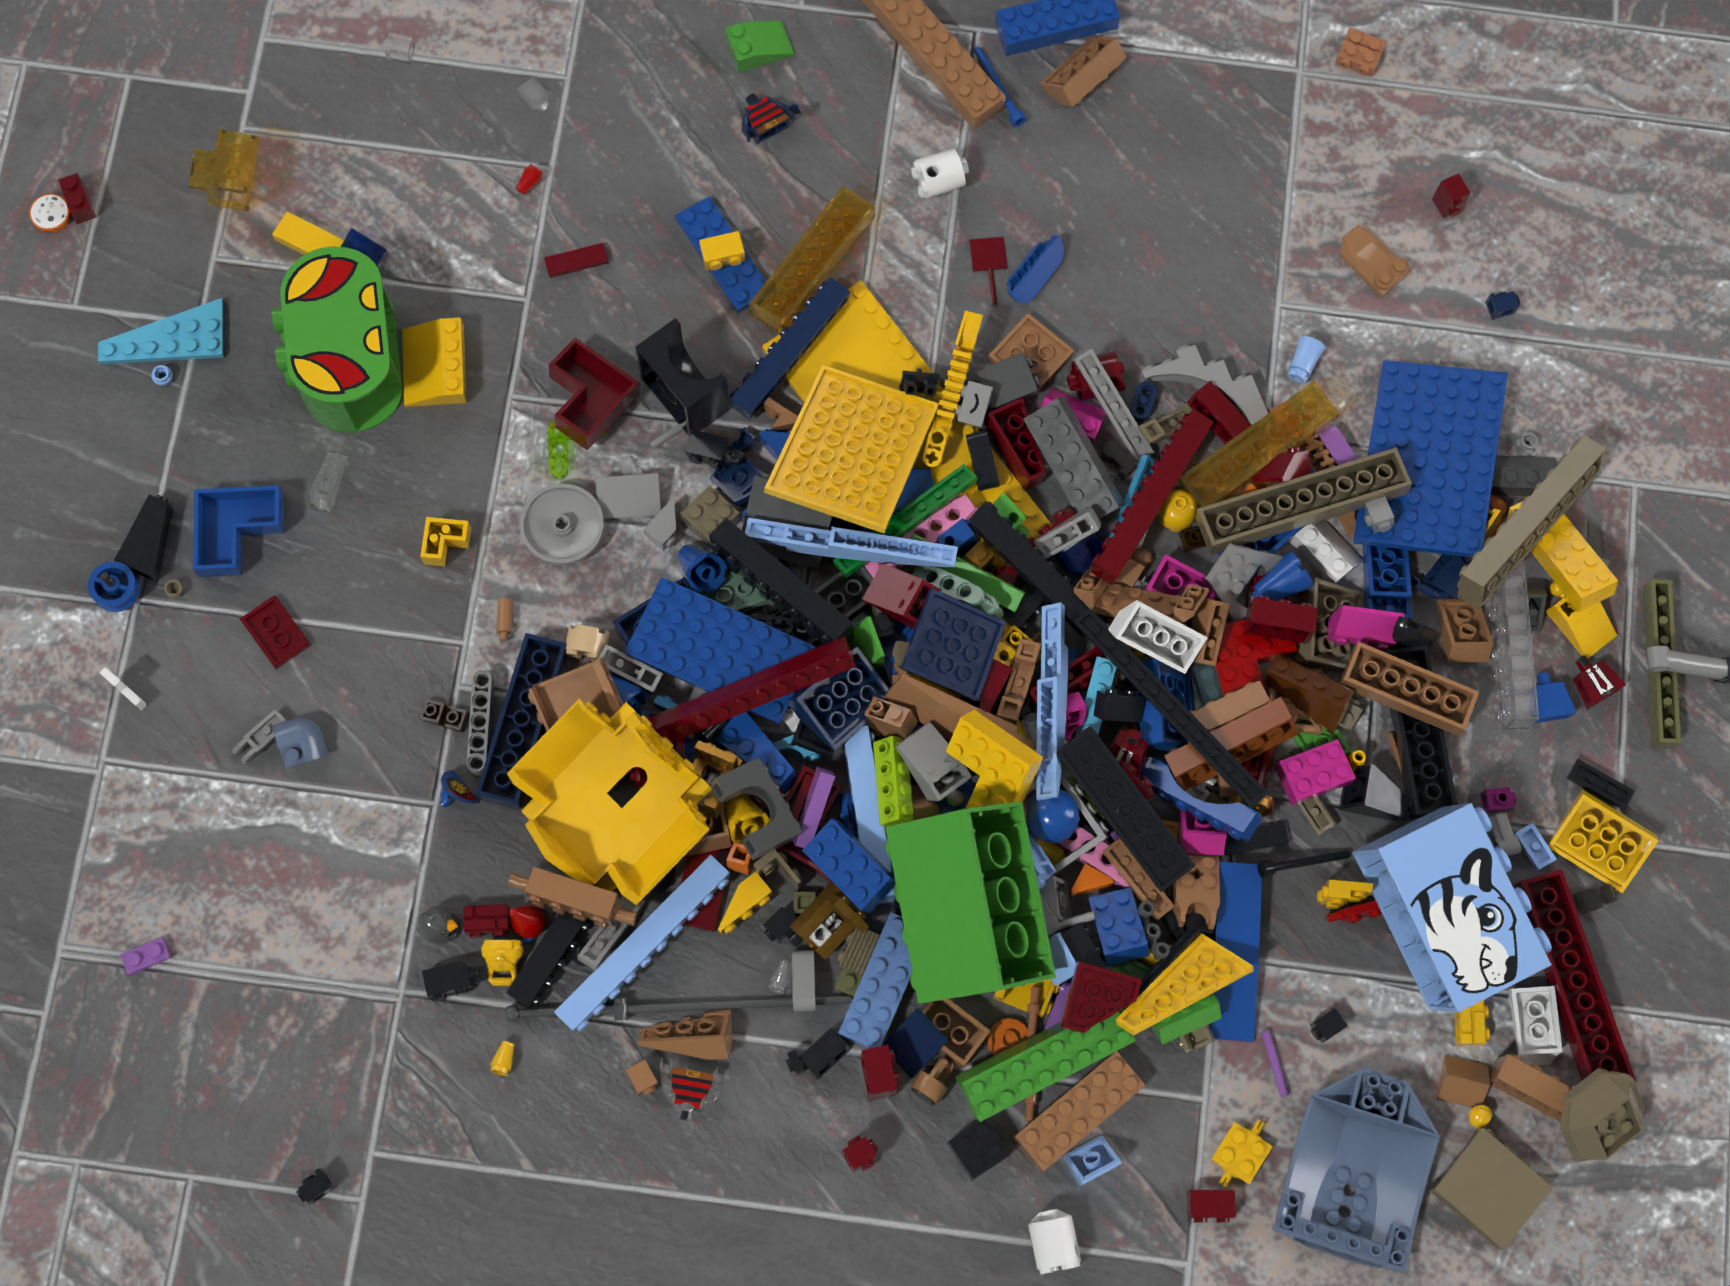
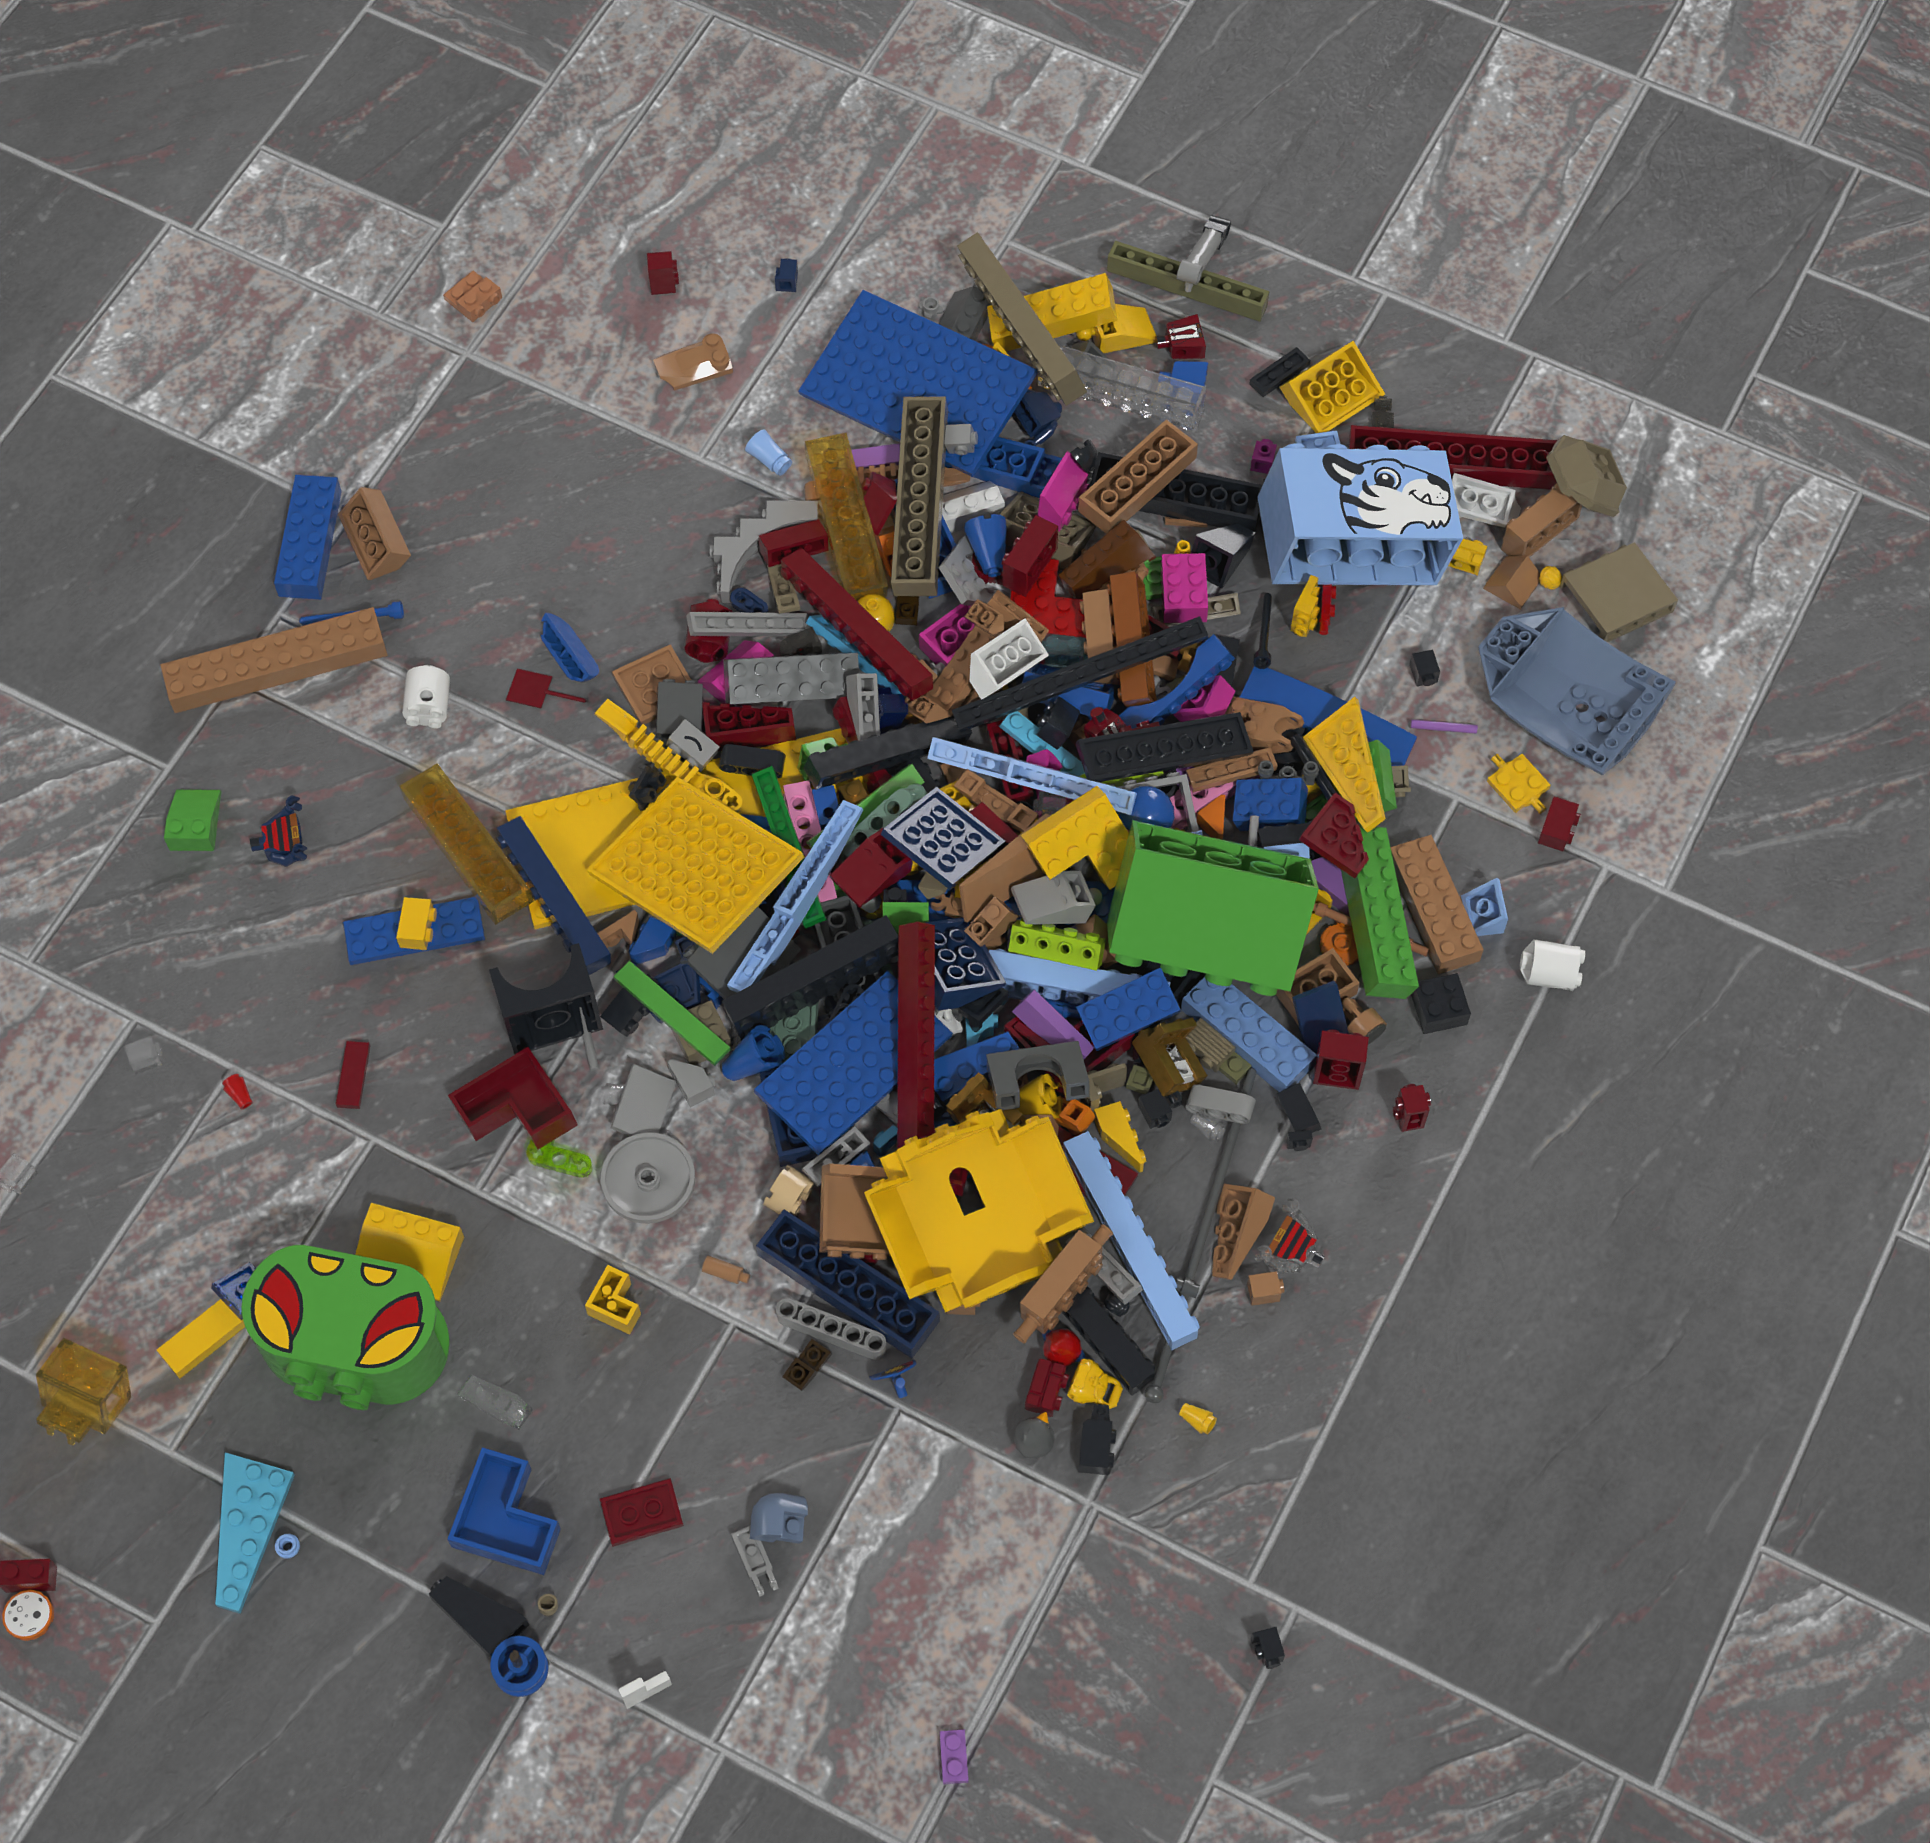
camera: 65 degrees left, 10 degrees down
(710, 484) = (672, 1013): none -> bright green tile
(1463, 632) = (1093, 420): medium nougat slope -> none

